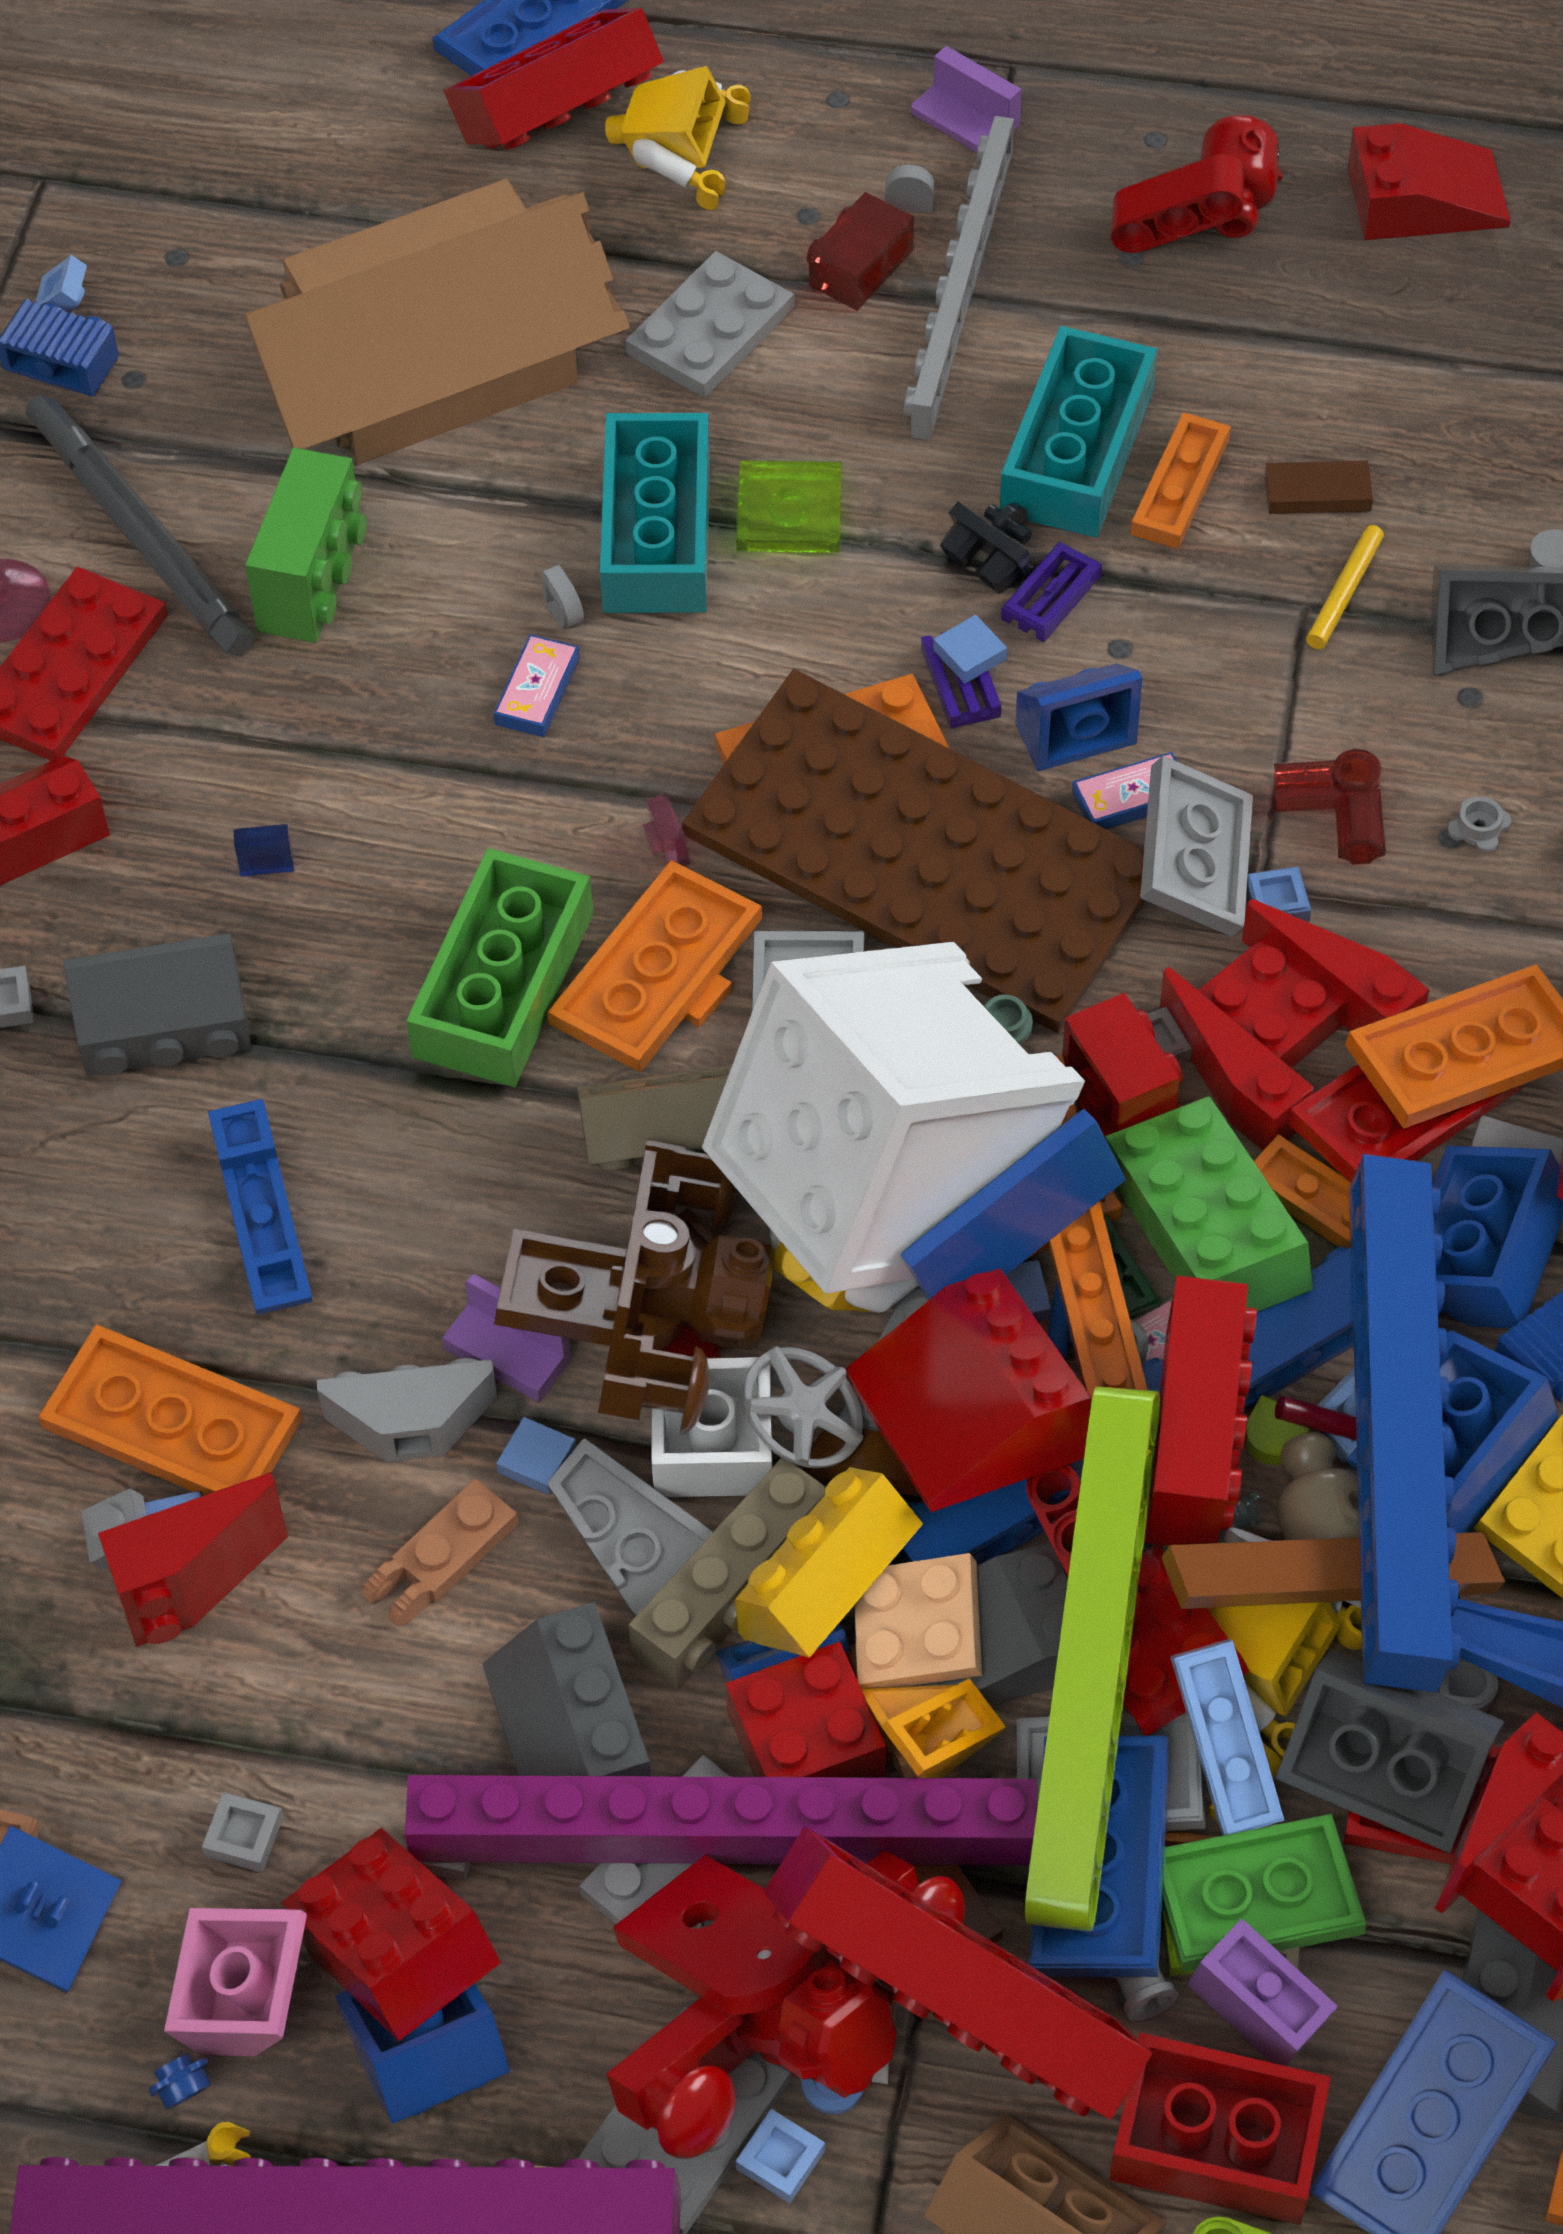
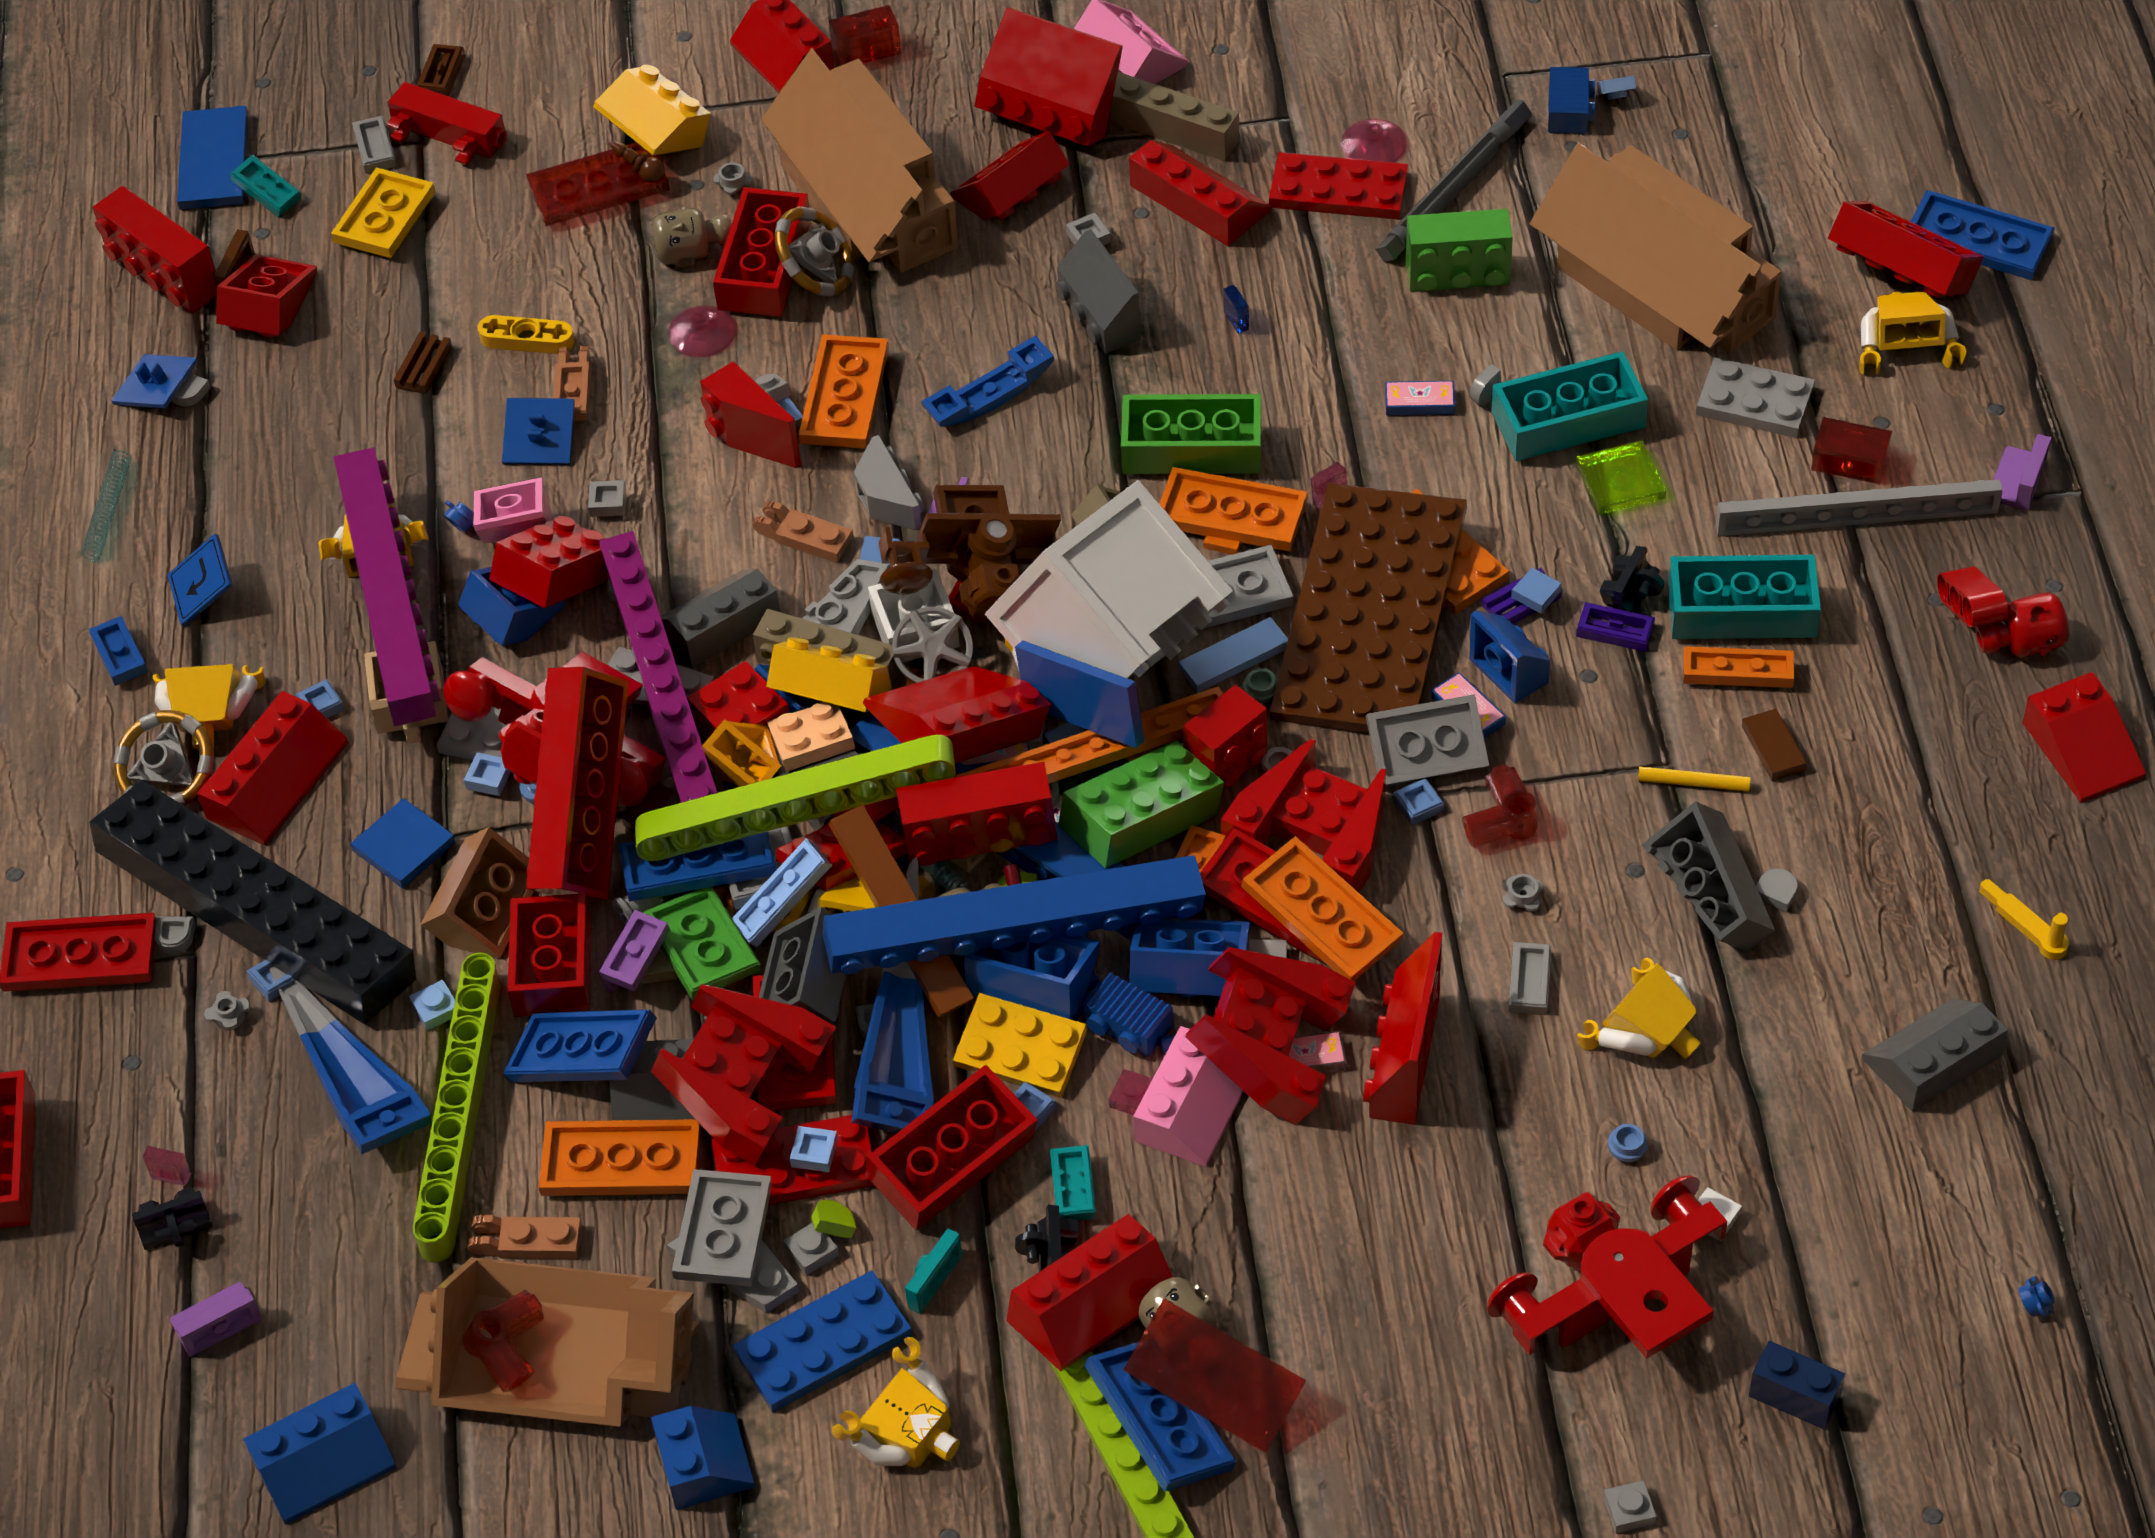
camera: 75 degrees right, 5 degrees down
(910, 189) = (1922, 462): light grey tile -> none

